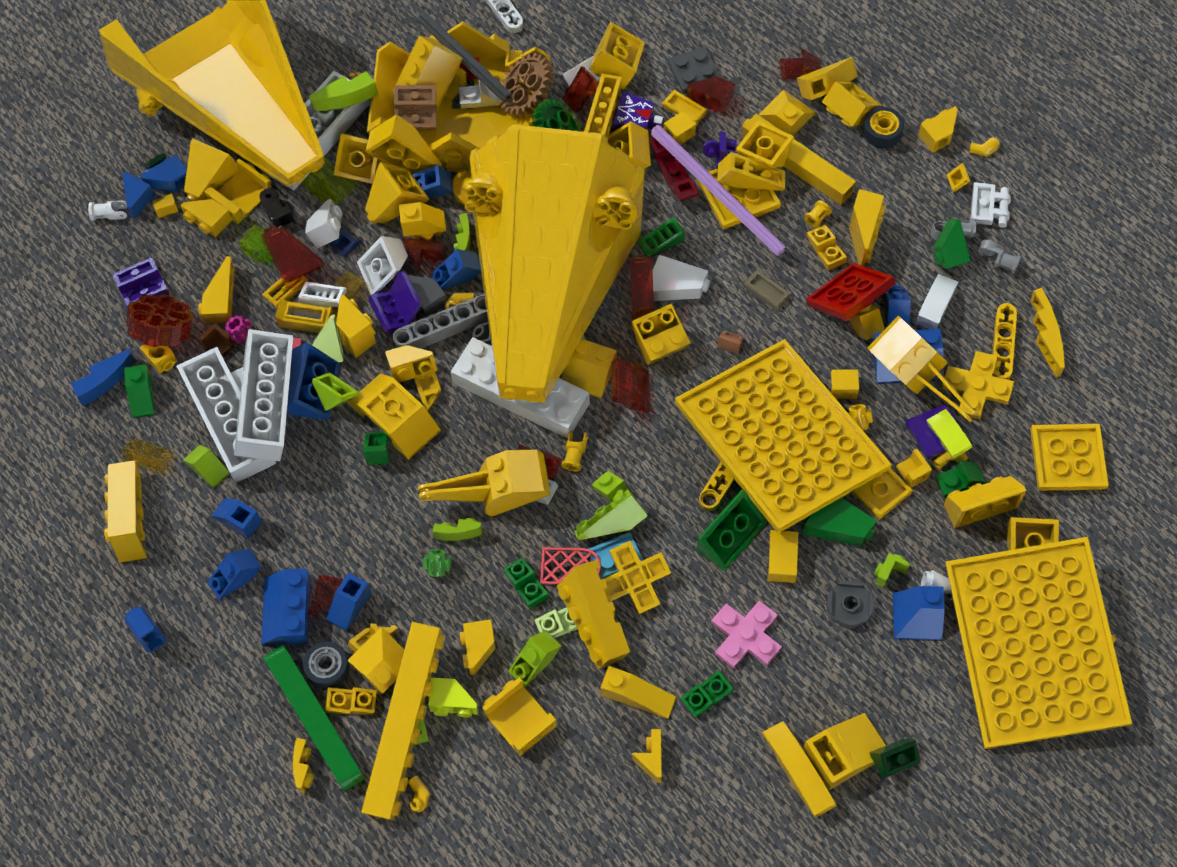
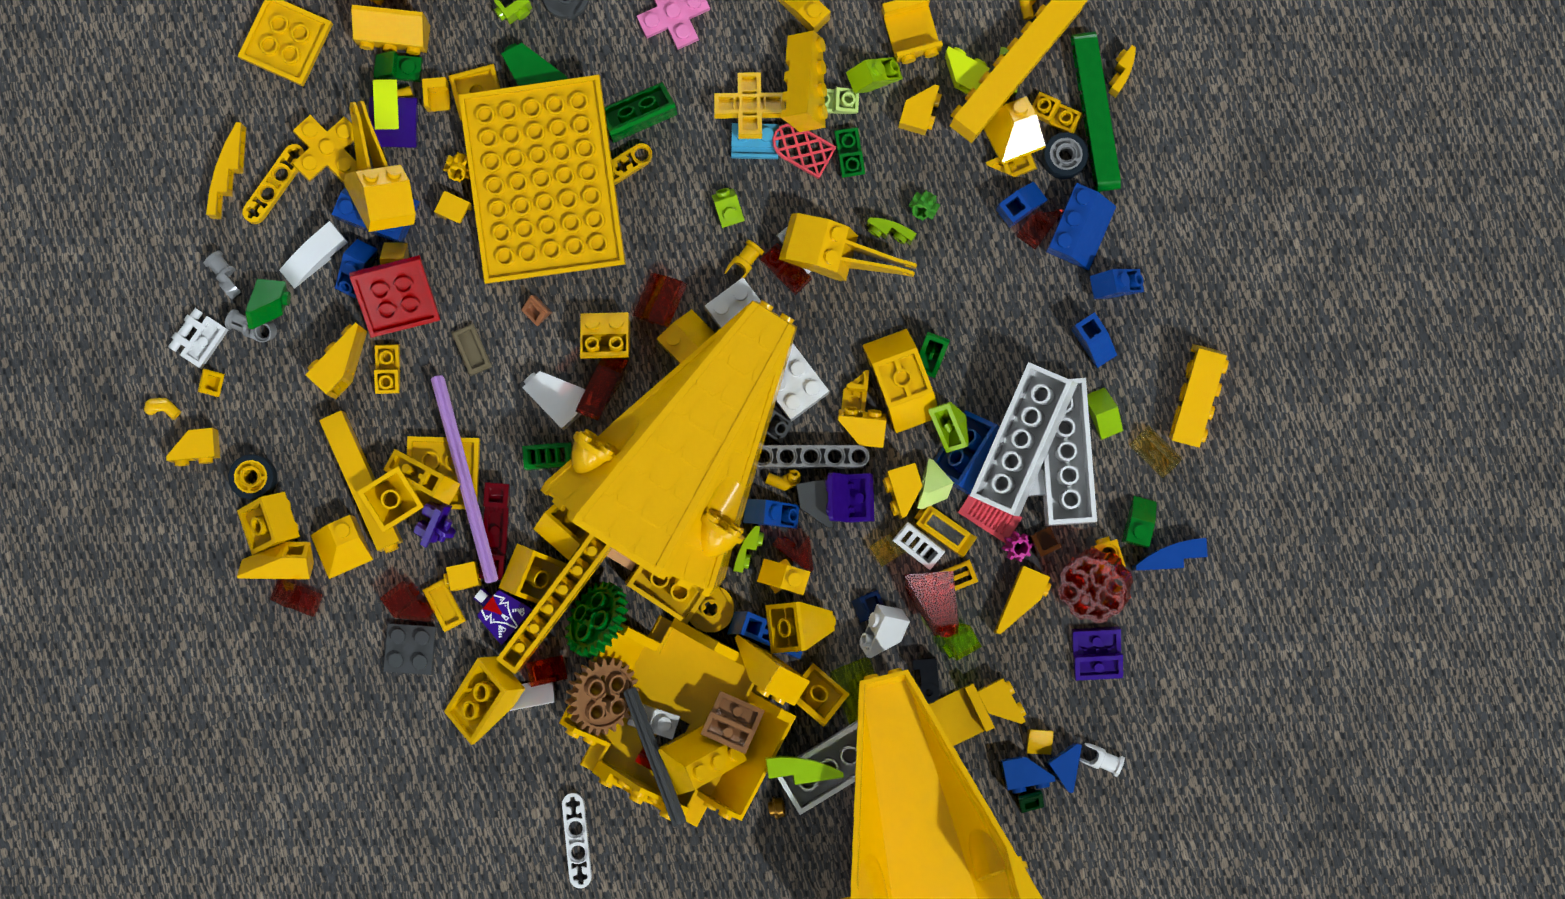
camera: 160 degrees left, 20 degrees up
(144, 629) = (1220, 258): blue brick -> none
(207, 168) = (986, 754): yellow slope -> none
(382, 262) = (842, 554): white slope -> none
(616, 517) = (737, 171): lime slope -> none
(783, 556) = (604, 61): yellow panel -> none
(817, 214) = (376, 408): yellow bush -> none

